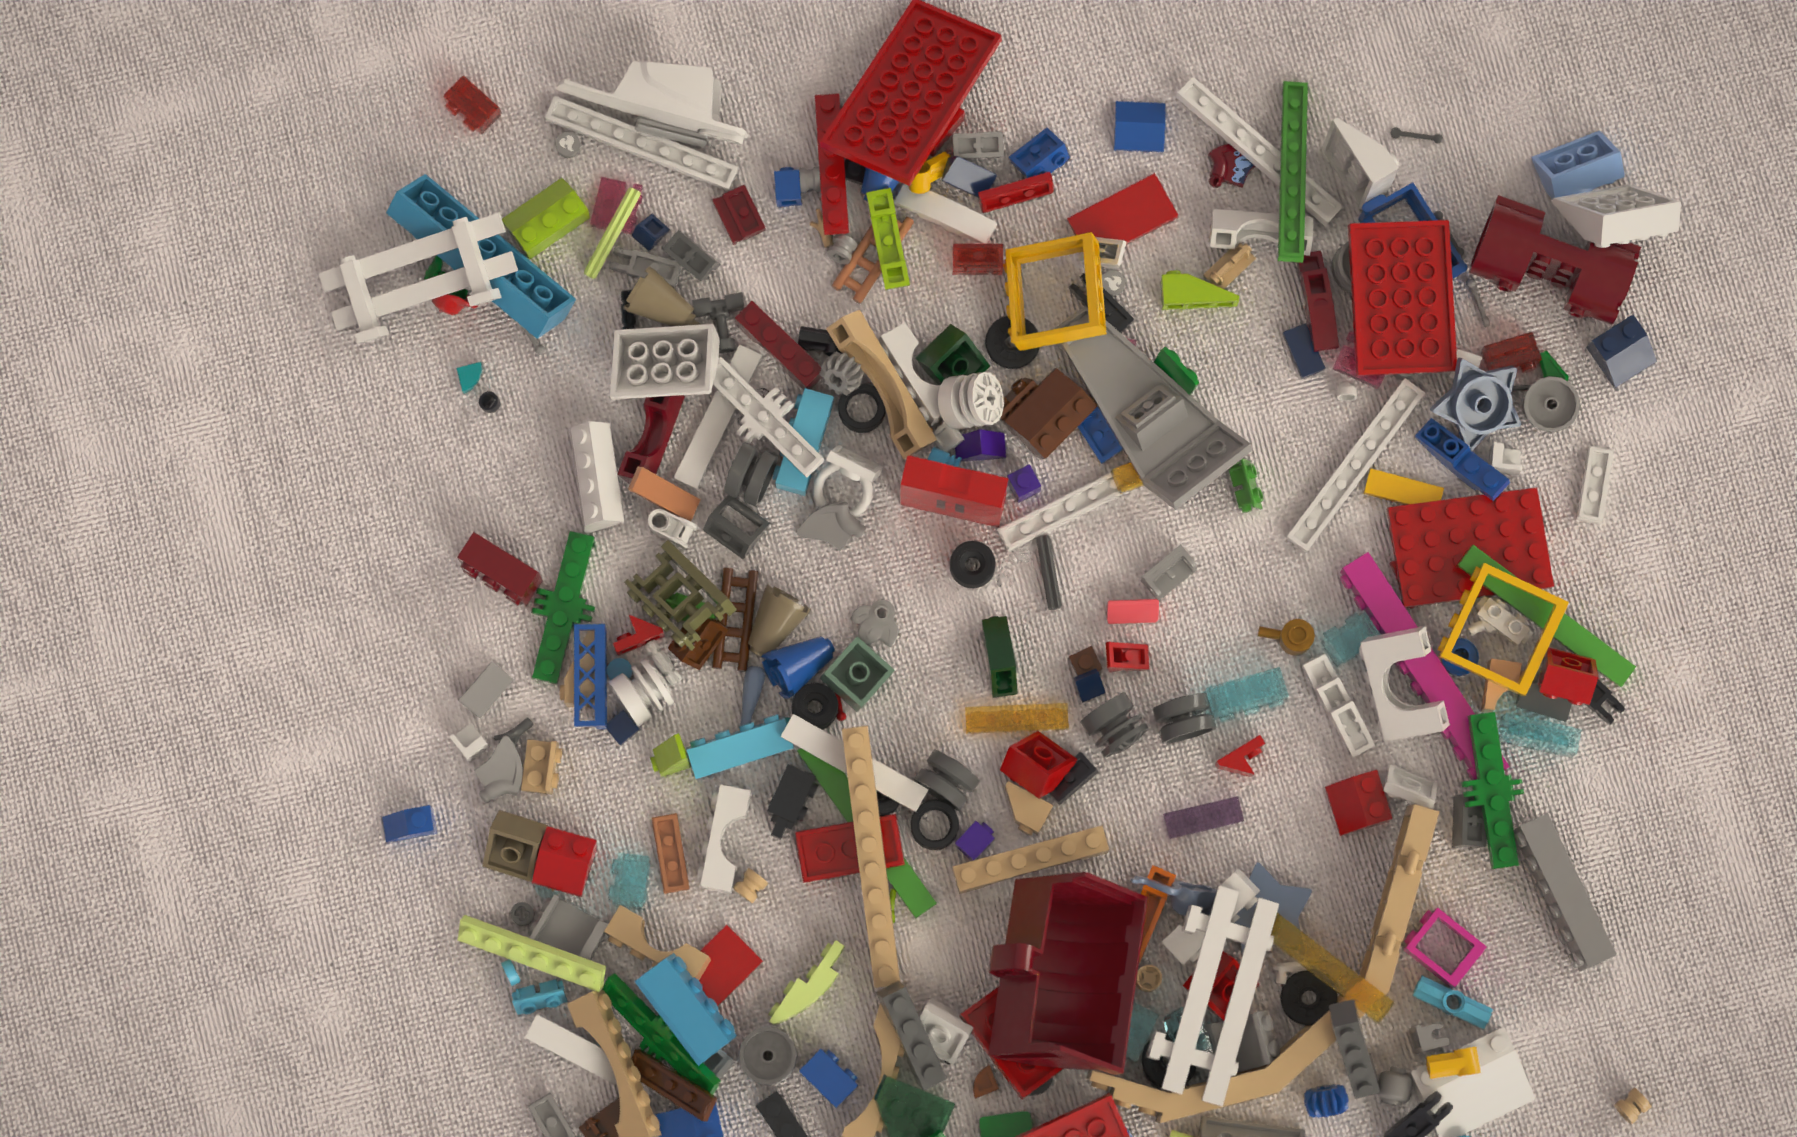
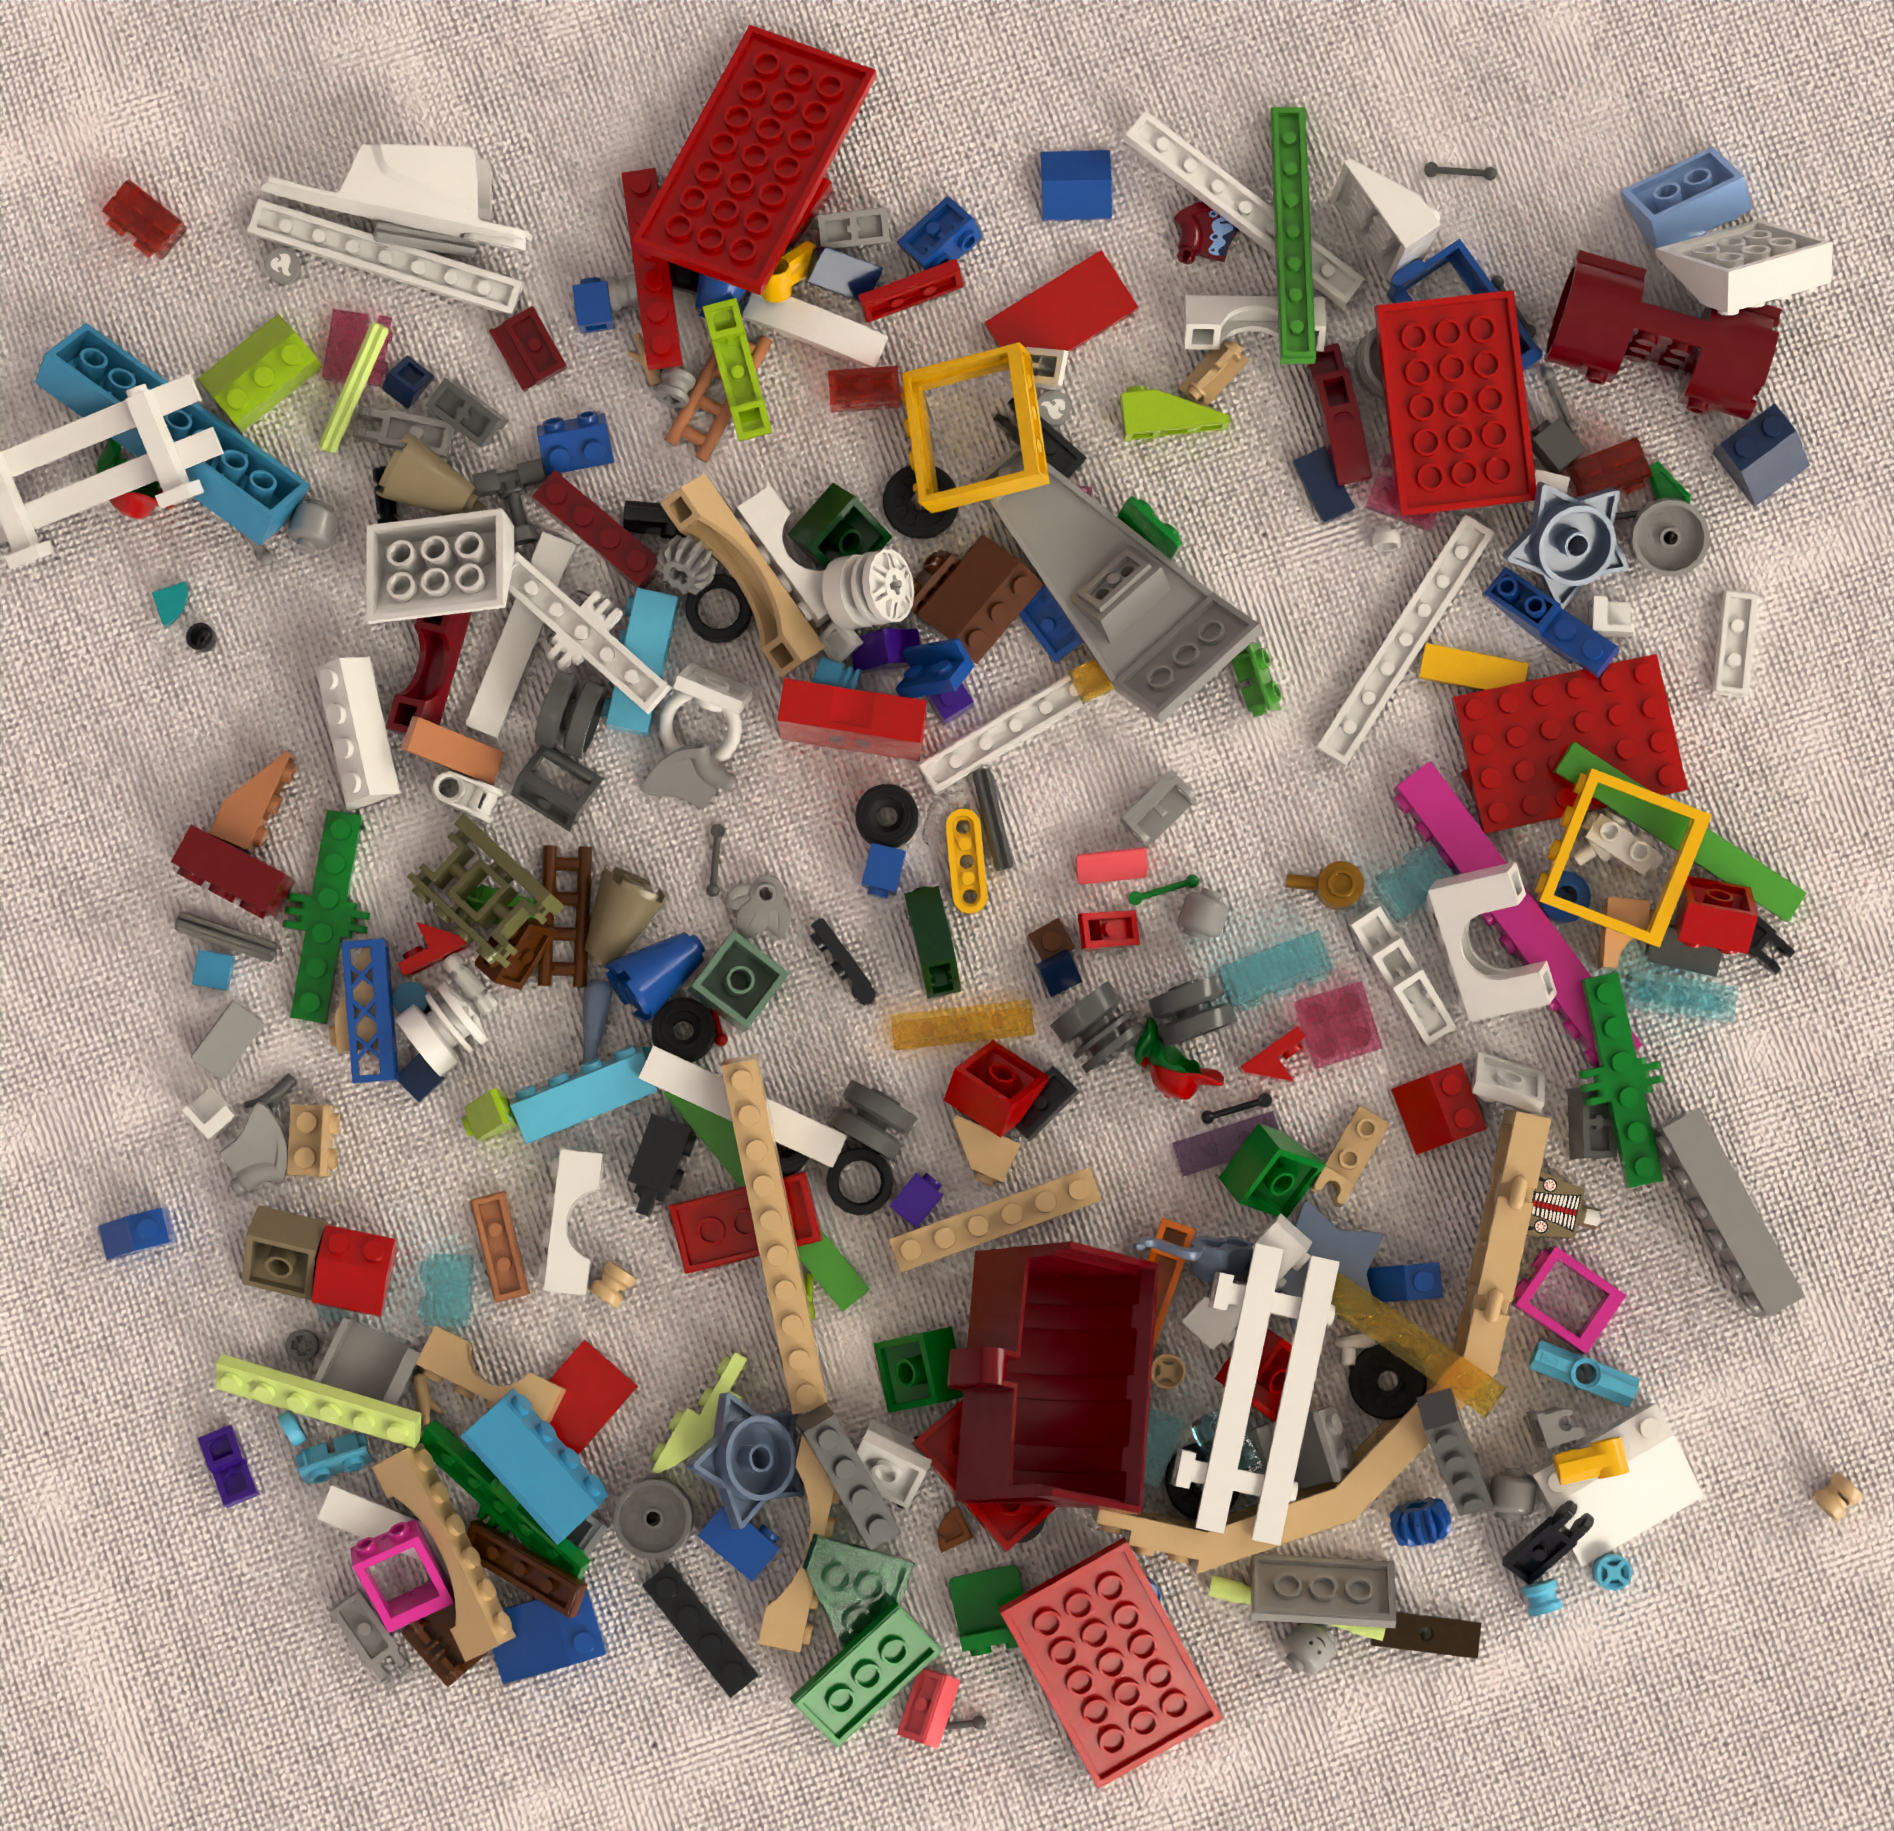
camera: 10 degrees left, 5 degrees up
(462, 997) = (229, 1466): none -> dark purple slope
(479, 640) = (213, 970): none -> dark azure tile
(490, 616) = (226, 936): none -> dark grey axle
(514, 525) = (247, 810): none -> nougat slope
(575, 328) = (313, 526): none -> light grey head
(591, 1105) = (416, 1602): none -> dark pink window
(607, 958) = (424, 1400): none -> tan bar
(767, 283) = (575, 442): none -> blue bracket
(840, 1017) = (748, 1458): none -> sand blue plate
(849, 567) = (717, 832): none -> dark grey hinge
(934, 667) = (844, 964): none -> black hinge
(966, 963) = (916, 1369): none -> green slope
(967, 602) = (883, 870): none -> blue brick
(1015, 459) = (934, 668): none -> blue bracket
(1031, 590) = (969, 845): none -> yellow plate
(1148, 636) = (1136, 898): none -> green hinge
(1164, 760) = (1169, 1069): none -> hair
(1196, 651) = (1203, 914): none -> light grey head
(1232, 788) = (1263, 1100): none -> black hinge
(1233, 838) = (1271, 1172): none -> green slope
(1289, 737) = (1338, 1025): none -> clear pink plate
(1292, 831) = (1351, 1154): none -> tan plate
(1327, 926) = (1405, 1282): none -> blue slope
(1441, 882) = (1559, 1209): none -> torso
(1473, 334) = (1556, 445): none -> dark grey brick

